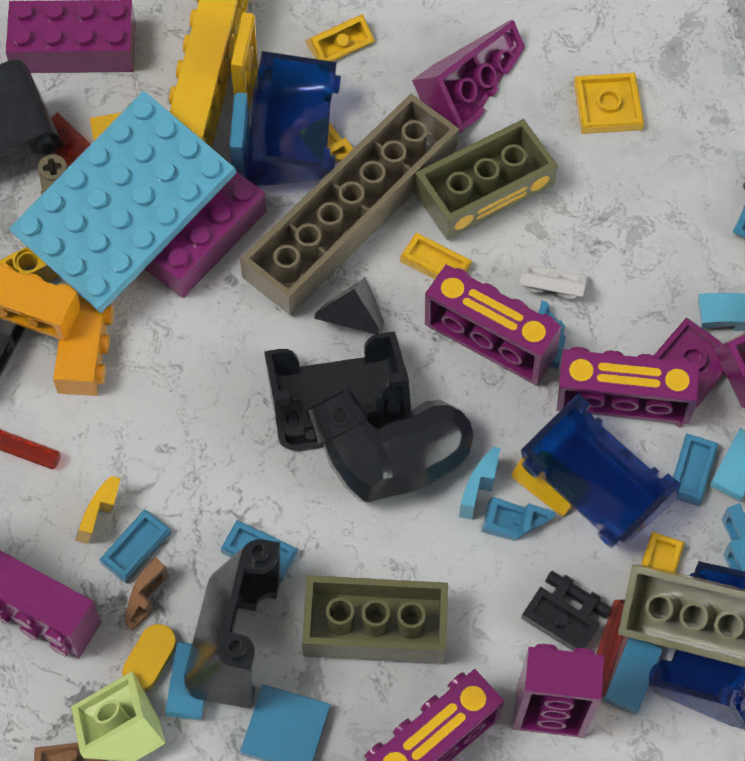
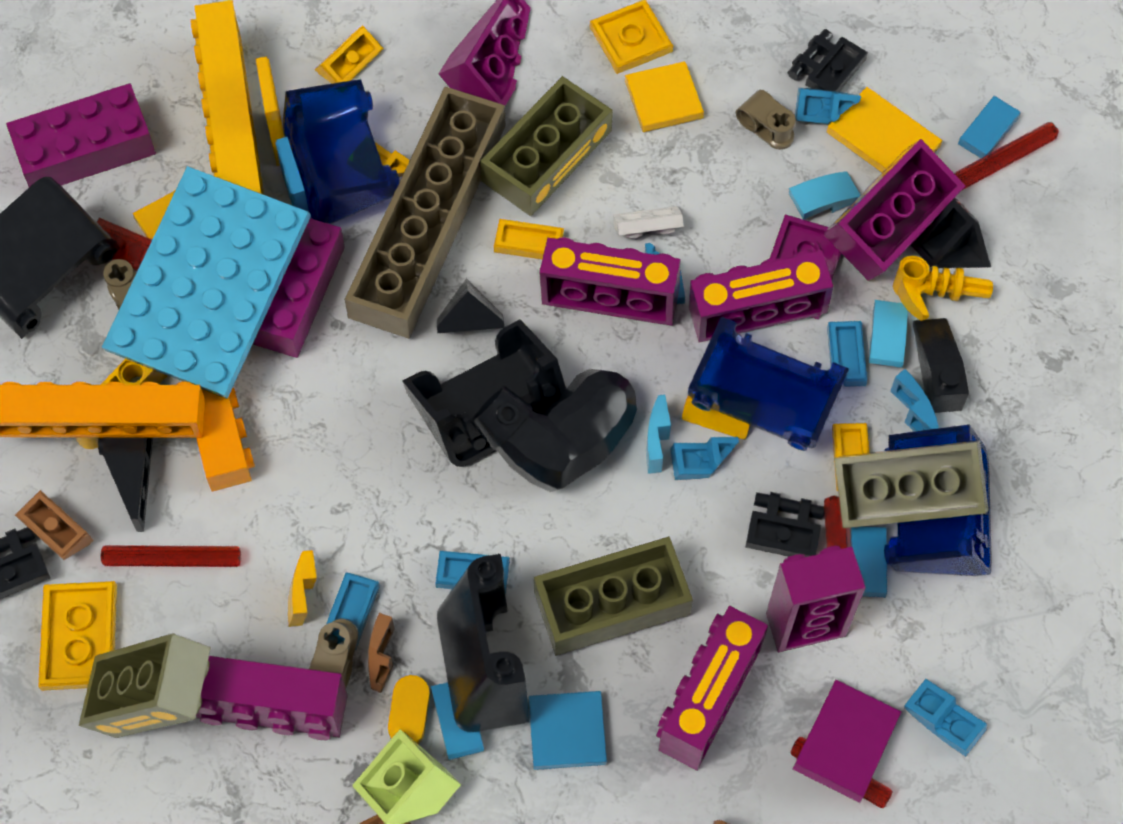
camera: 20 degrees left, 0 degrees up
(99, 582) = (332, 656): none -> dark tan piece
(616, 169) = (664, 96): none -> yellow tile
(705, 223) = (767, 117): none -> dark tan piece

